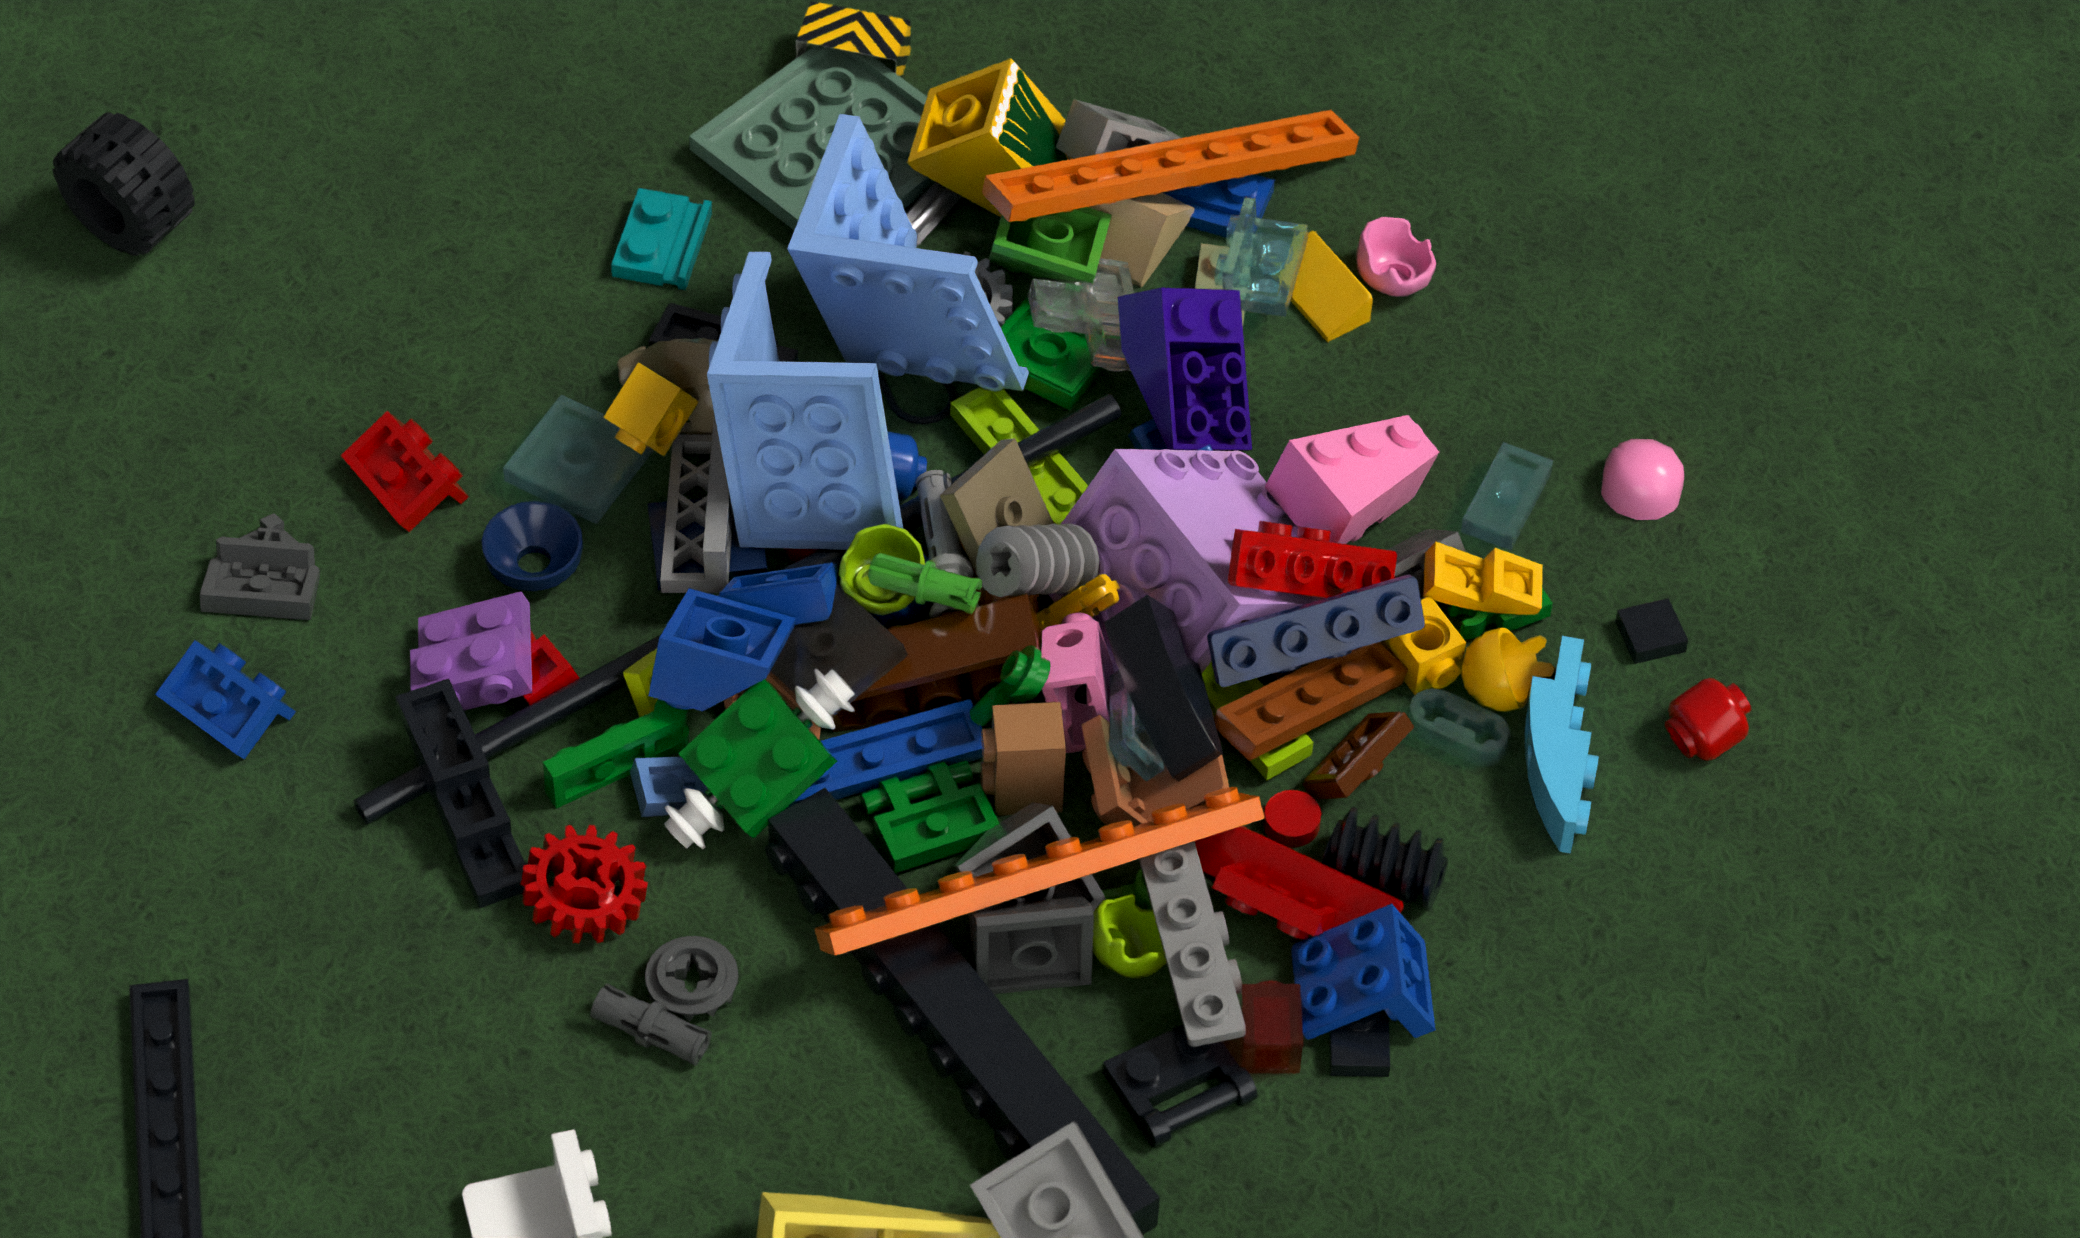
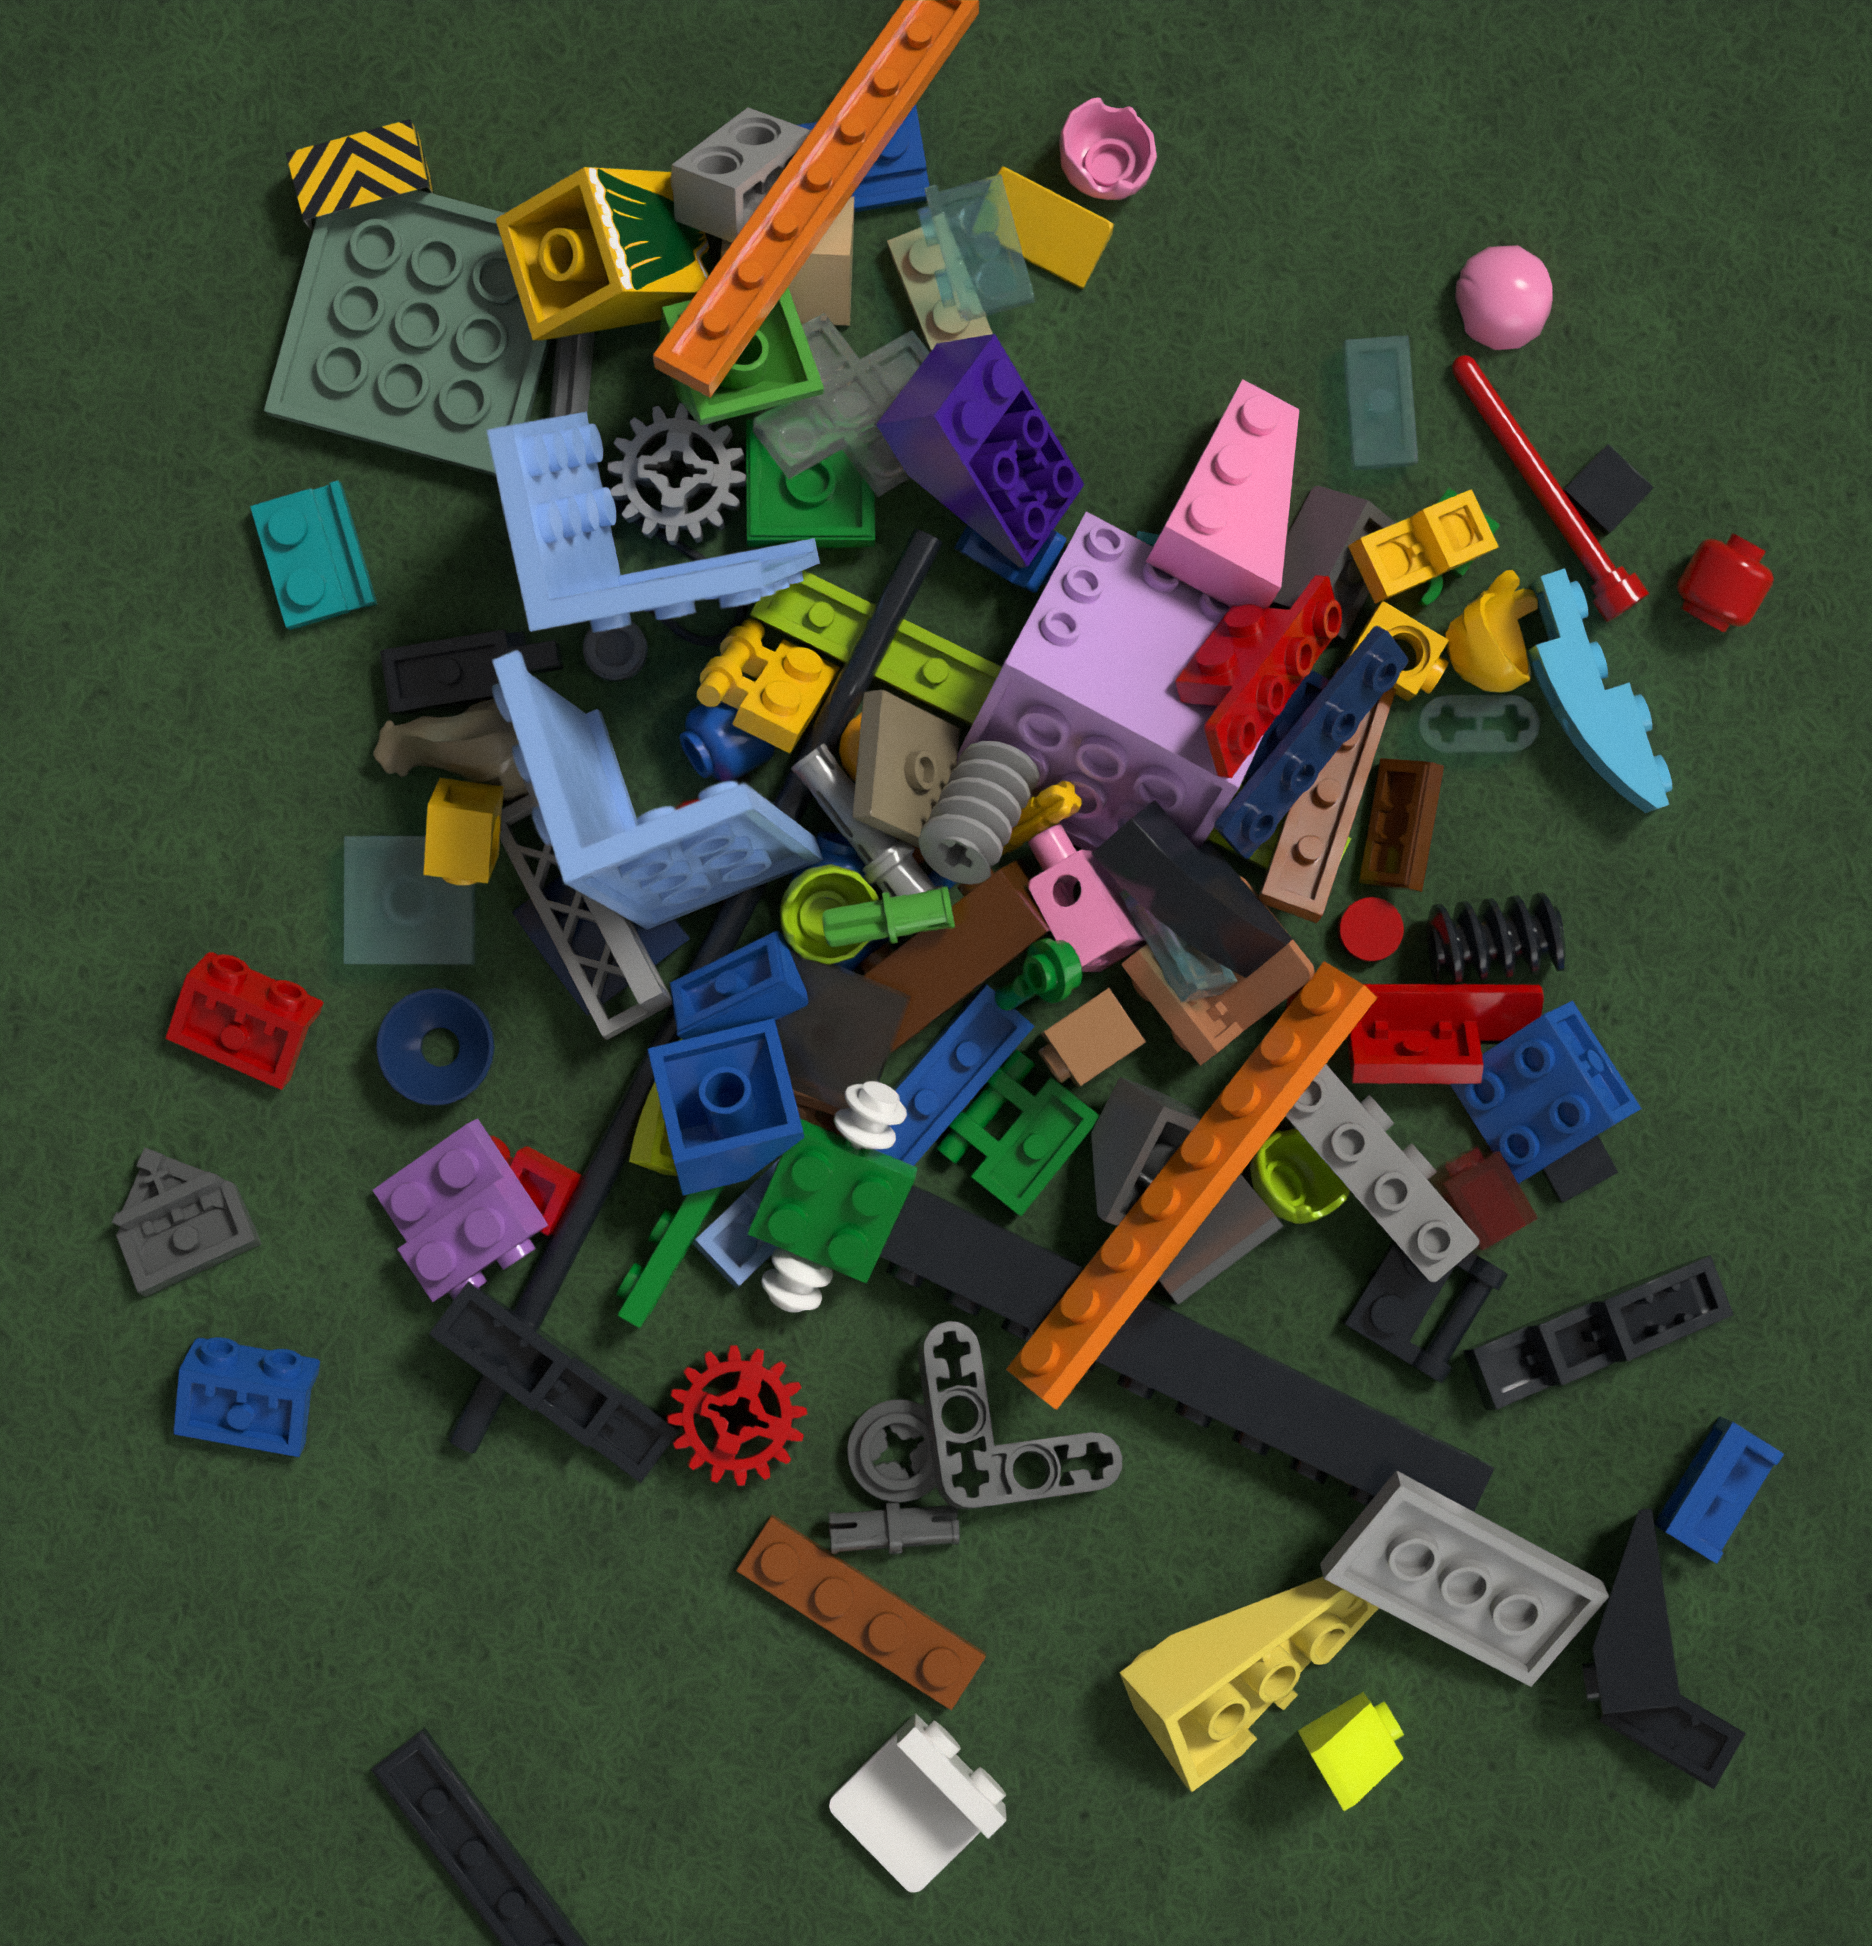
camera: 25 degrees left, 35 degrees up
(585, 1075) = (861, 1612): none -> dark orange plate
(762, 1007) = (996, 1461): none -> dark grey beam
(927, 434) = (786, 690): none -> yellow plate
(1306, 1171) = (1598, 1332): none -> black slope
(1619, 690) = (1613, 586): none -> red piece

